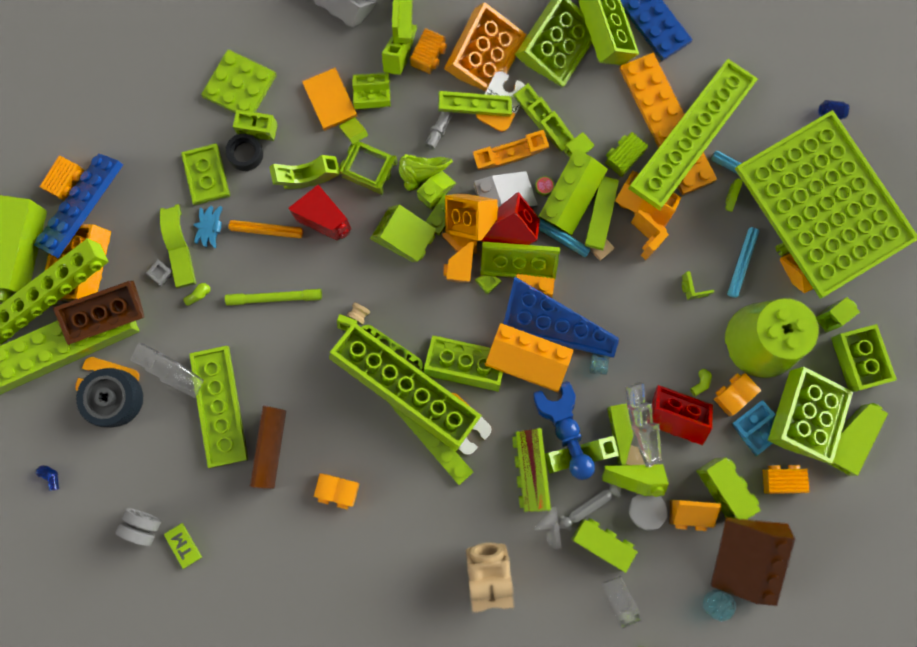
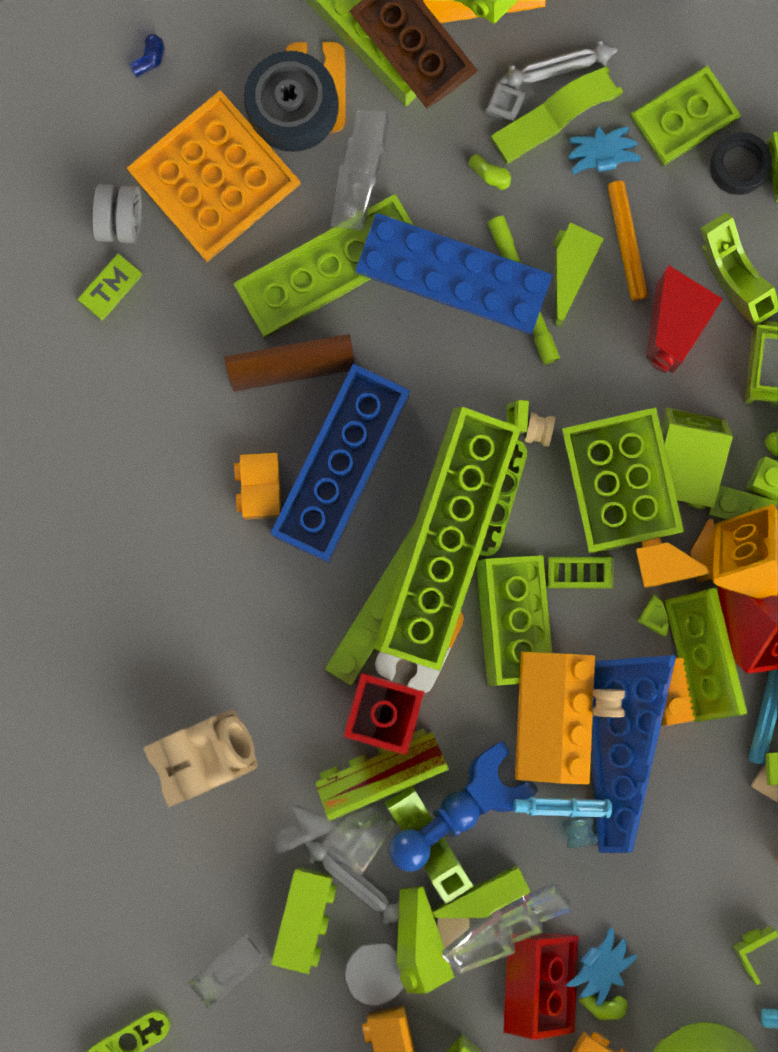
camera: 75 degrees right, 5 degrees up
(137, 460) = (213, 176): none -> light orange plate
(148, 235) = (558, 65): none -> light grey wheel
(248, 334) = (453, 273): none -> blue plate
(267, 264) = (572, 261): none -> lime slope
(339, 436) = (340, 463): none -> blue brick
(404, 274) = (622, 480): none -> lime slope
(438, 330) = (608, 572): none -> lime slope
(497, 456) = (384, 713): none -> red slope
(530, 323) = (608, 702): none -> tan wheel
(565, 495) = (358, 838): none -> clear slope
(582, 368) = (564, 807): none -> medium azure piece
(680, 376) = (602, 968): none -> dark azure piece

